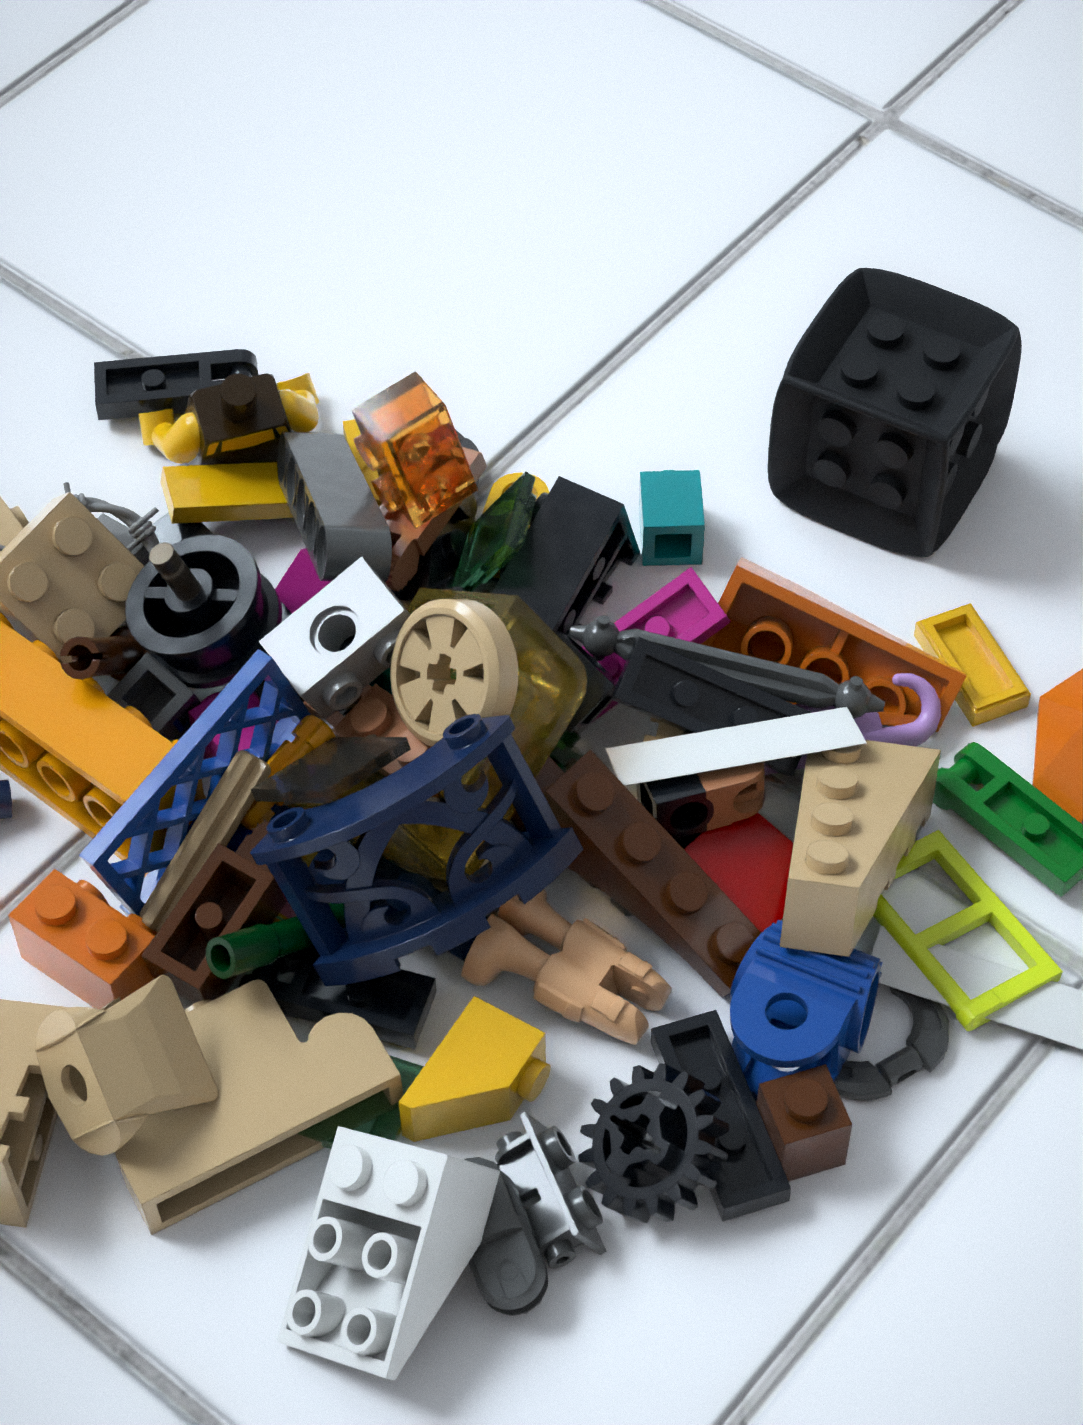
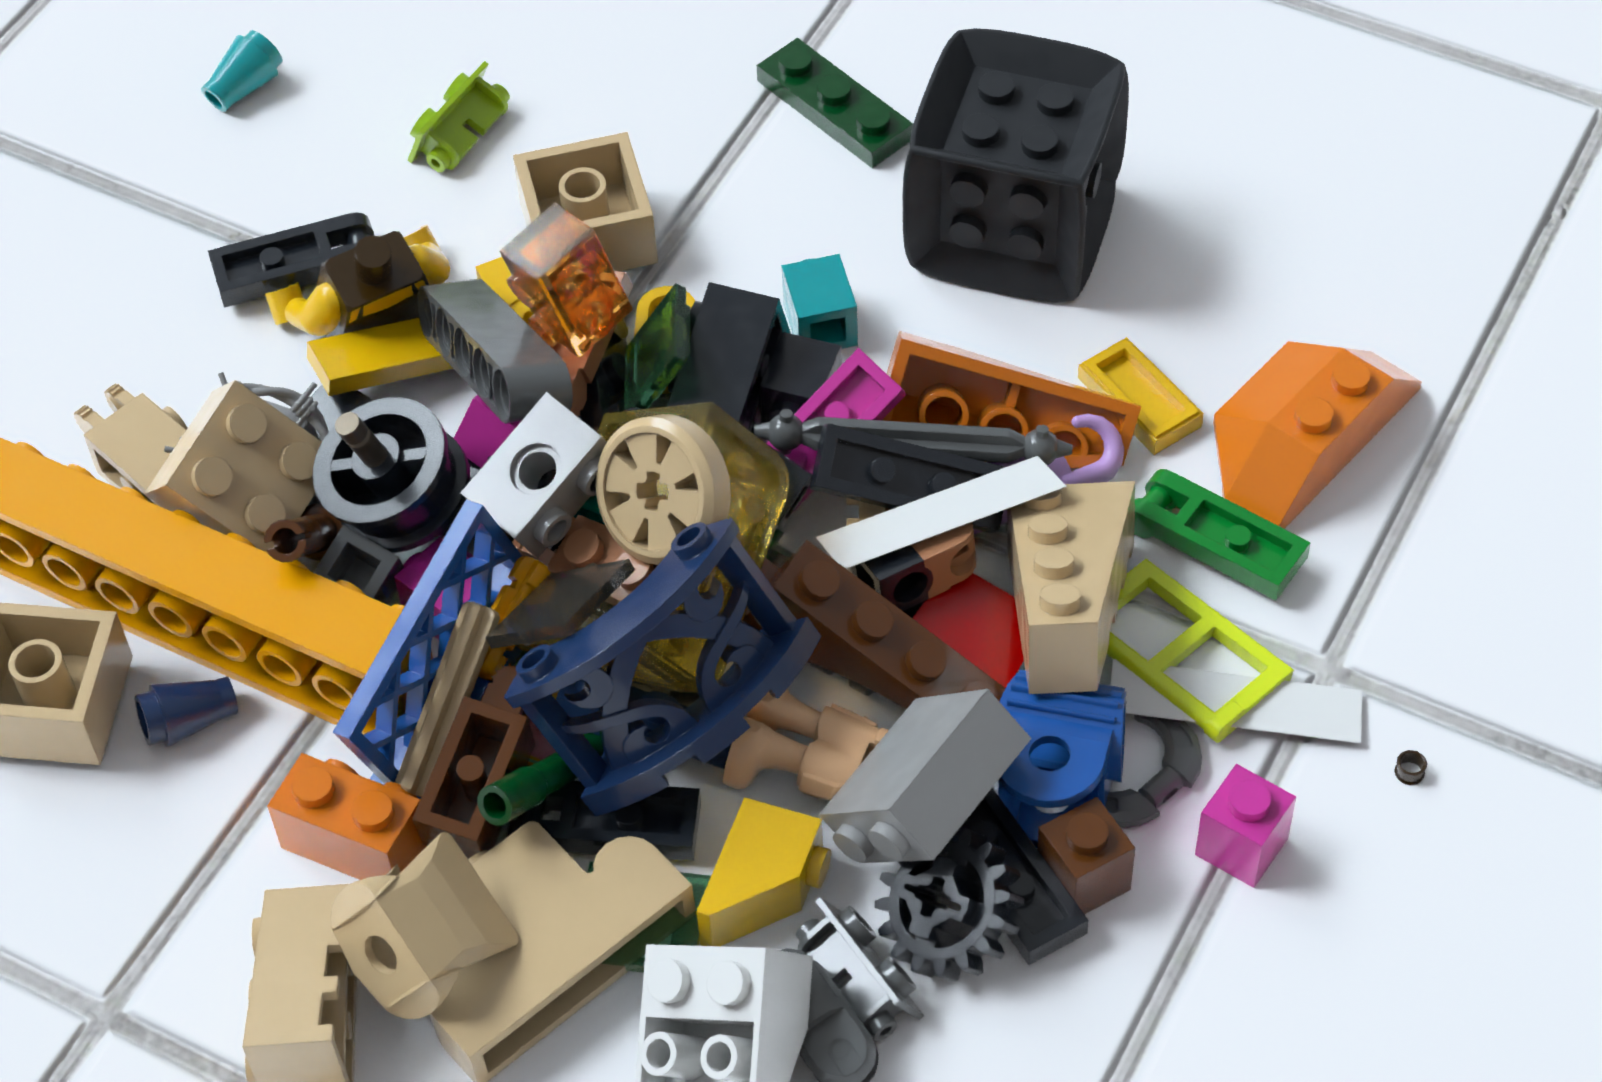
camera: 10 degrees left, 0 degrees up
(173, 193) = (243, 69): none -> teal cone
(347, 285) = (443, 133): none -> lime hinge
(474, 371) = (597, 185): none -> tan brick
(629, 579) = (796, 373): none -> black brick
(653, 1012) = (924, 778): none -> light grey brick
(733, 318) = (834, 102): none -> dark green plate
(973, 1122) = (1245, 825): none -> dark pink brick

